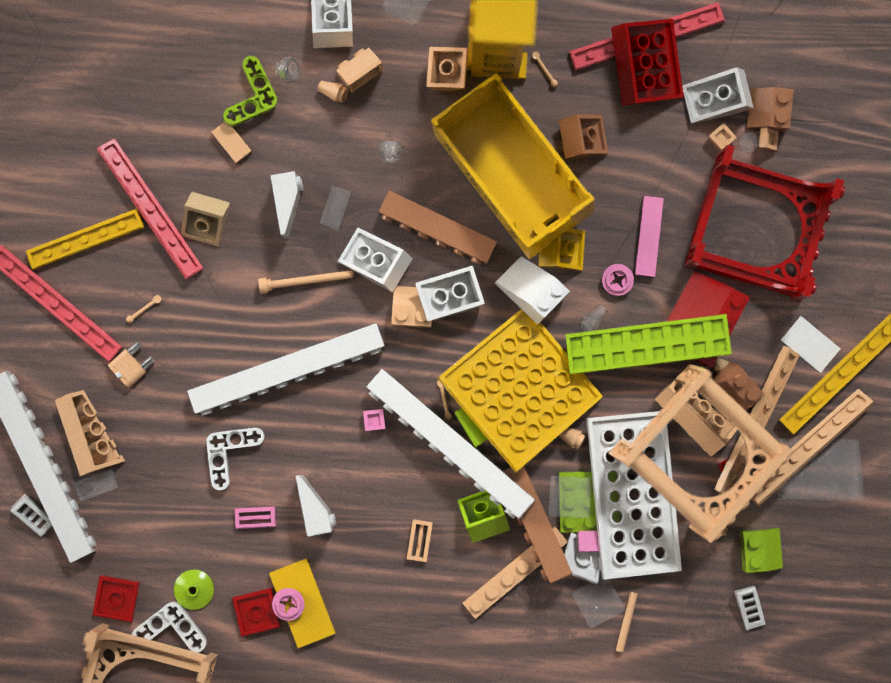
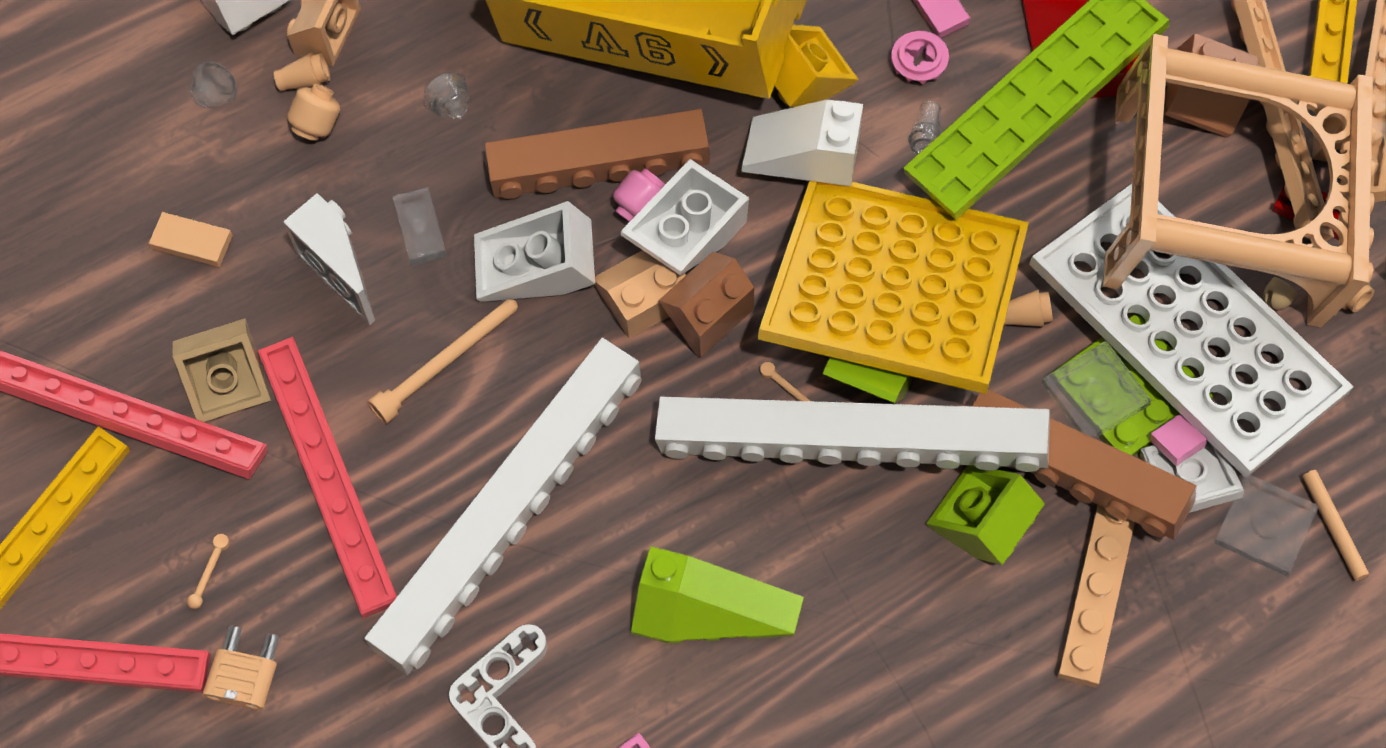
camera: 30 degrees left, 20 degrees down
(220, 299) = (328, 477): none -> coral tile
(257, 100) = (191, 155): lime beam -> none
(315, 511) = (708, 680): white slope -> none
(324, 117) = (313, 112): none -> light nougat head
(336, 468) = (698, 601): none -> lime wedge
(374, 419) = (703, 488): bright pink plate -> none
(416, 557) = (929, 655): light nougat tile -> none
(432, 338) = (709, 301): none -> nougat slope
(441, 262) = (636, 192): none -> bright pink head
(699, 420) = (1195, 160): light nougat wedge -> none

